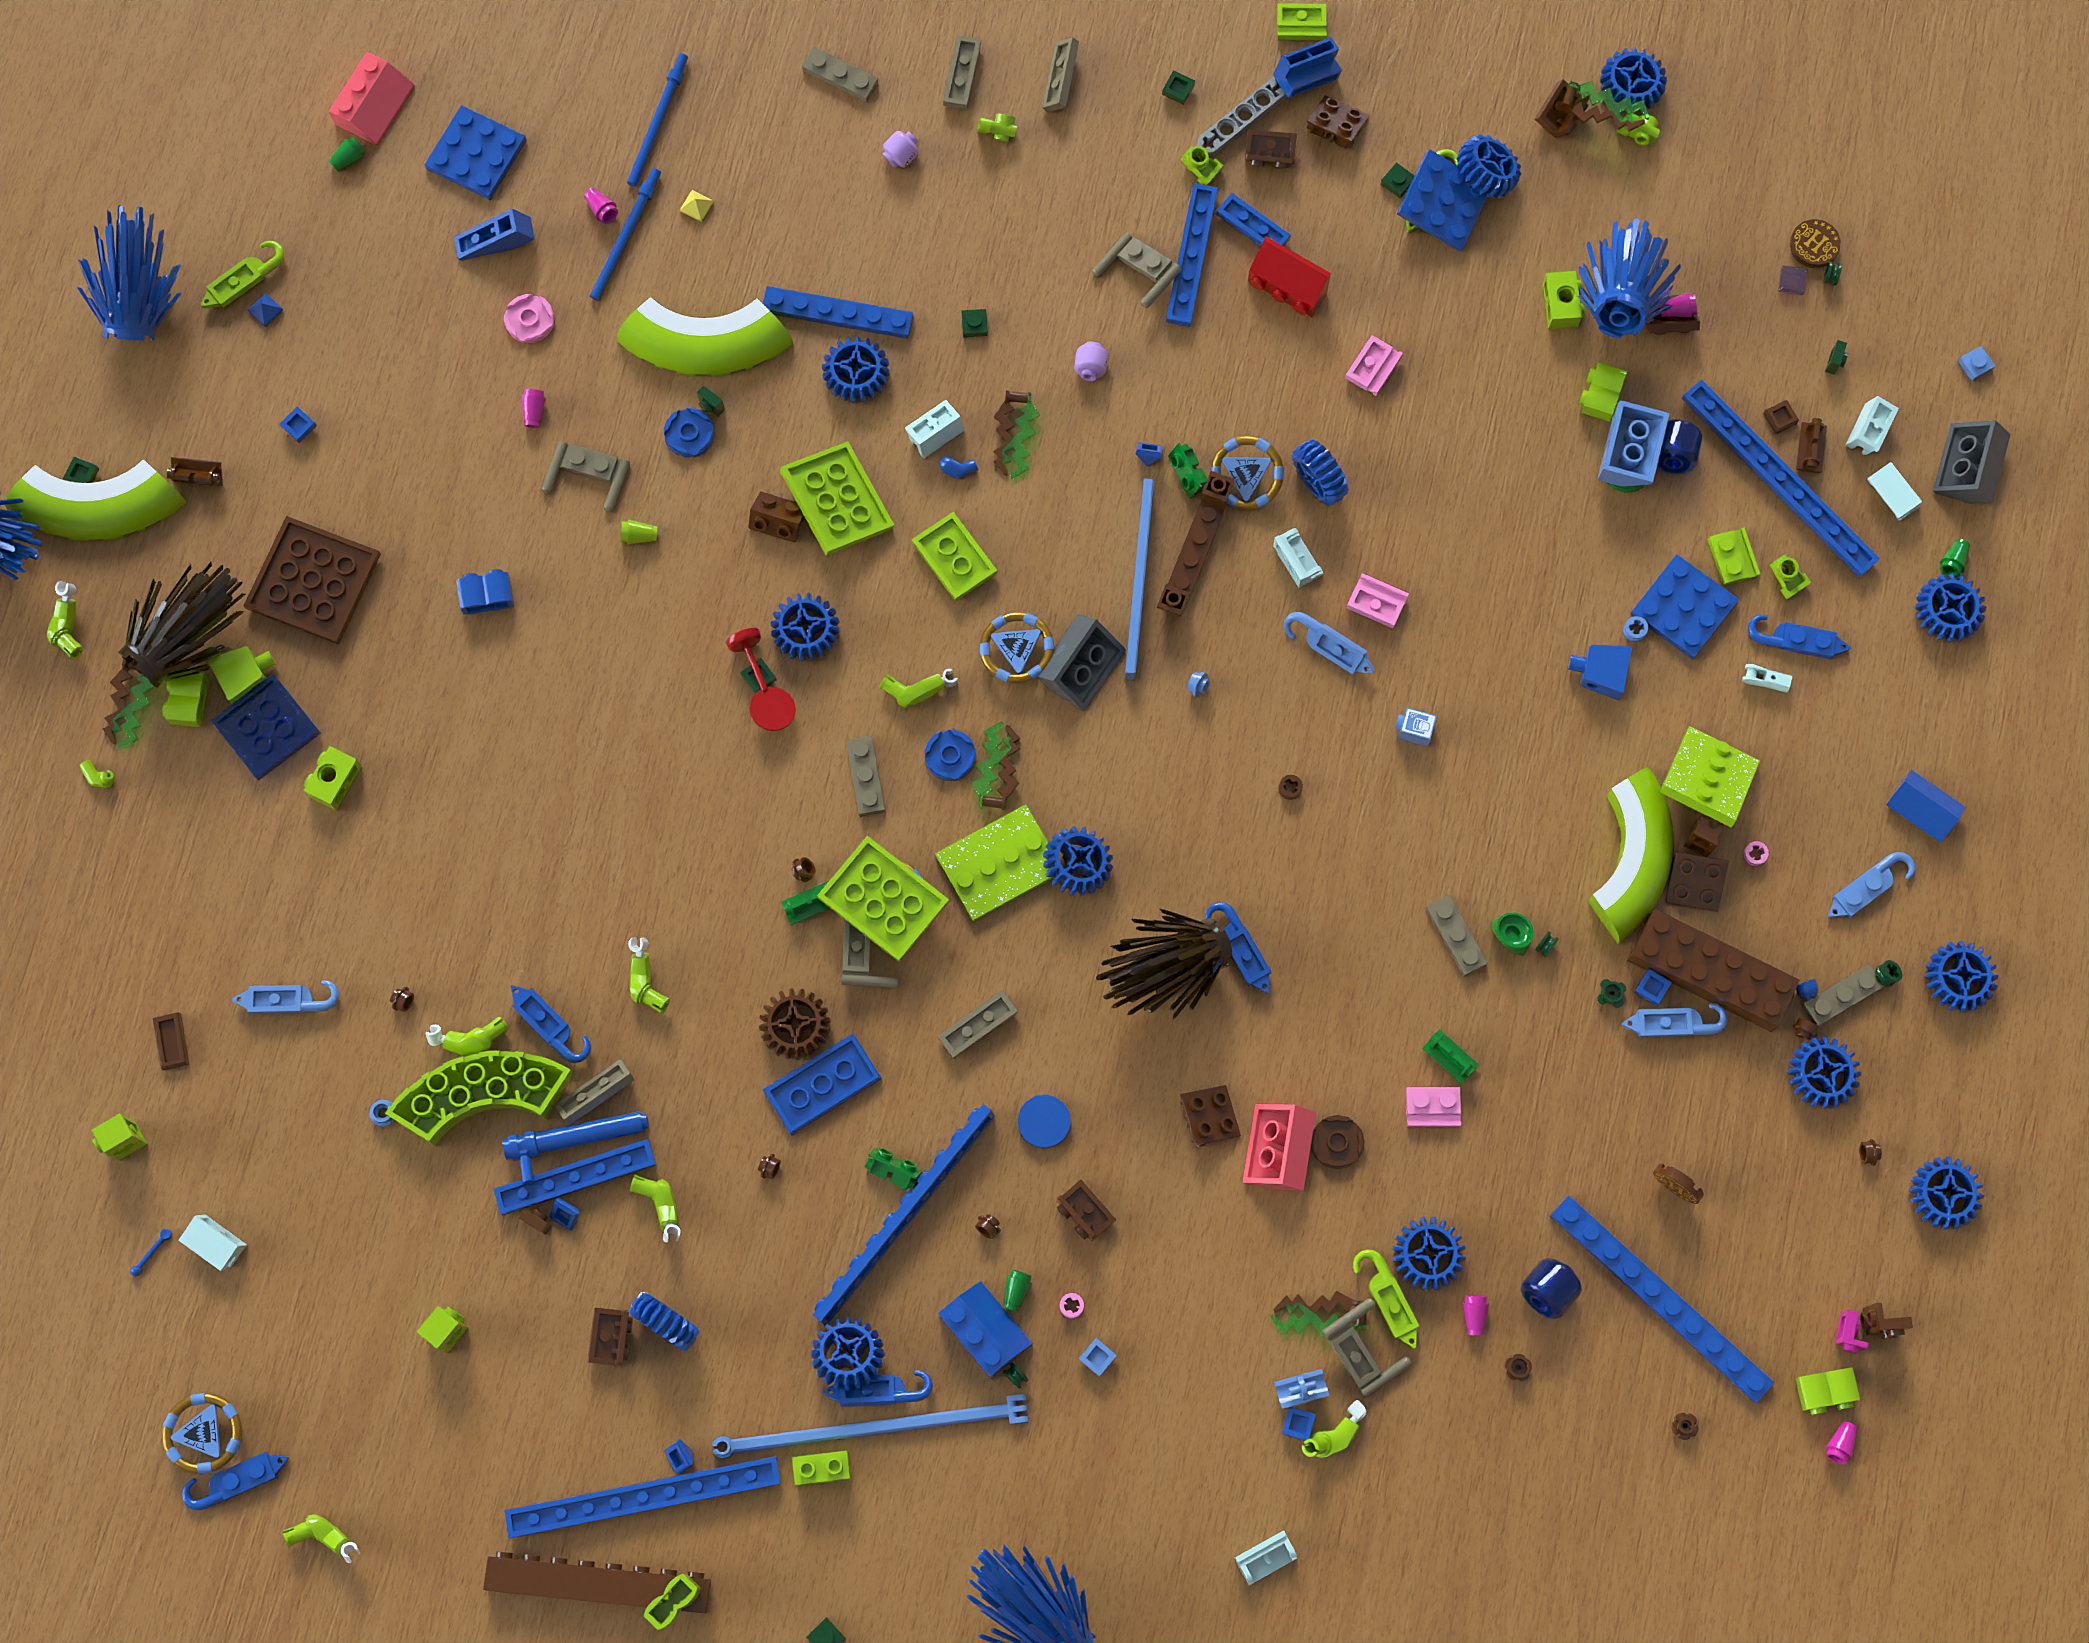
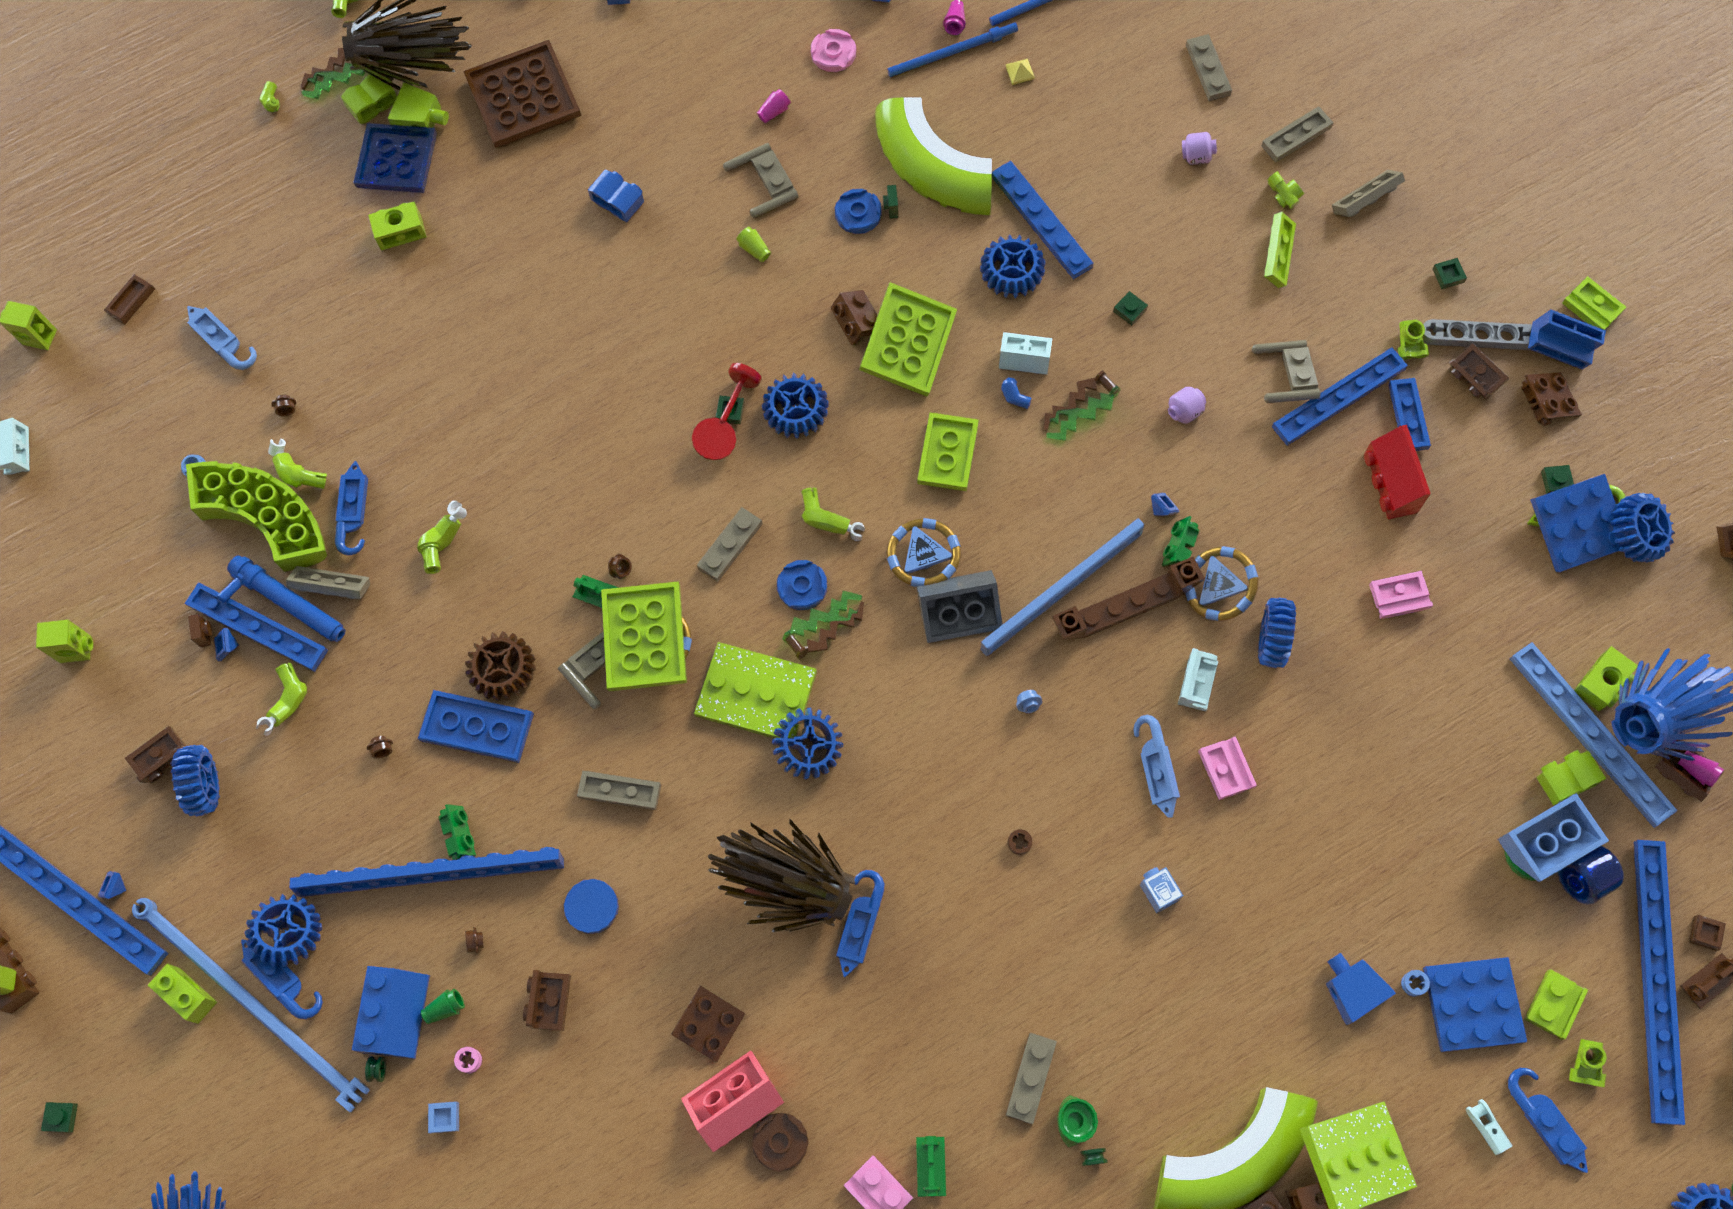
camera: 50 degrees right, 5 degrees down
(1040, 178) = (1280, 250): none -> lime plate
(1588, 347) = (1593, 735): none -> medium blue tile

